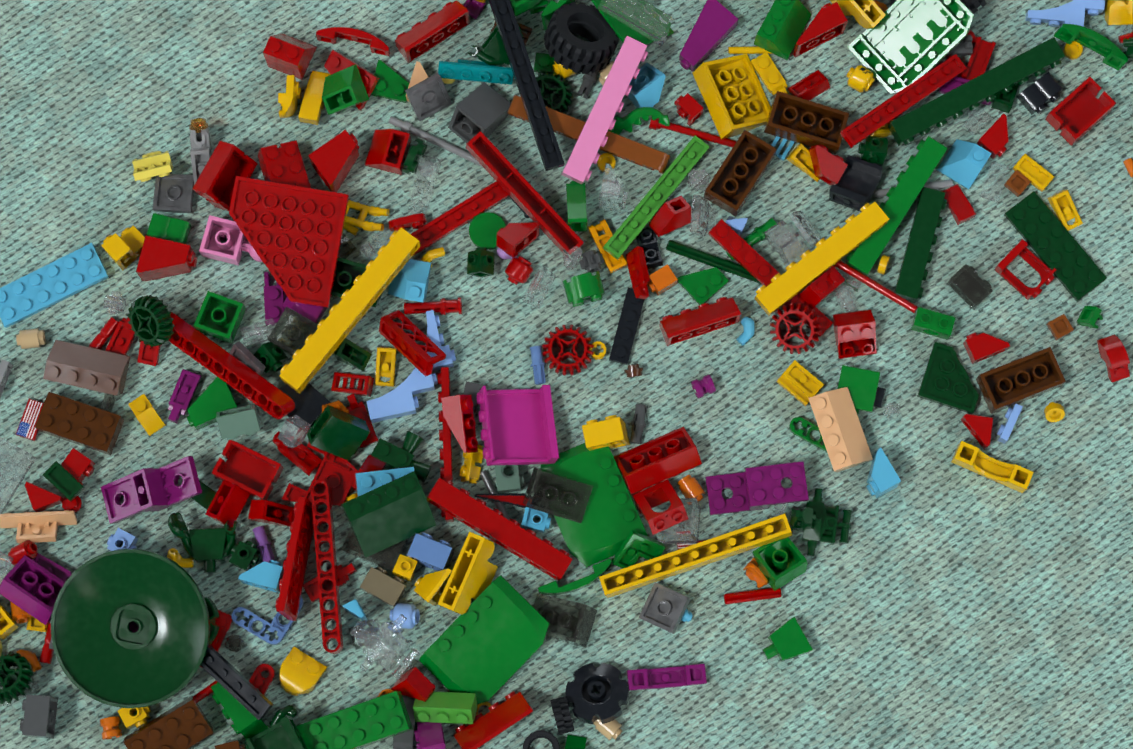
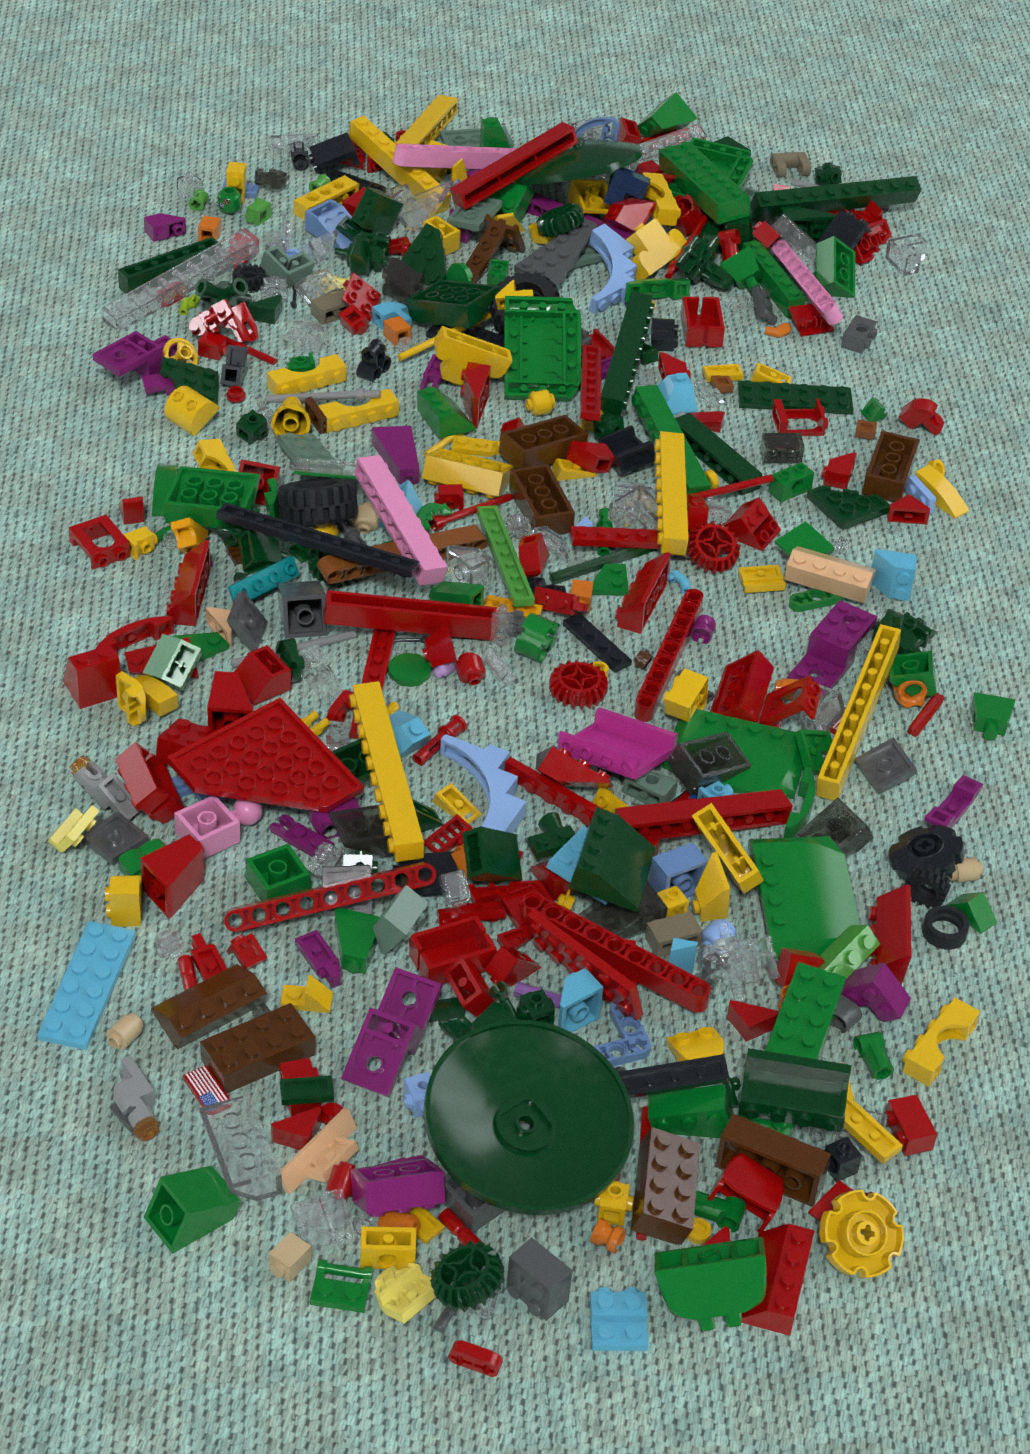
camera: 55 degrees left, 35 degrees down
(151, 320) = (214, 912): dark green gear -> none
(349, 687) = (751, 1019): none -> red slope
(406, 343) = (459, 765): red fence -> none
(480, 262) = (436, 684): dark green brick -> none
(538, 365) = (569, 711): medium blue axle -> none
(661, 377) = (668, 655): none -> red beam
(998, 471) = (968, 516): yellow arch -> none
(1027, 436) = (946, 495): none -> yellow slope

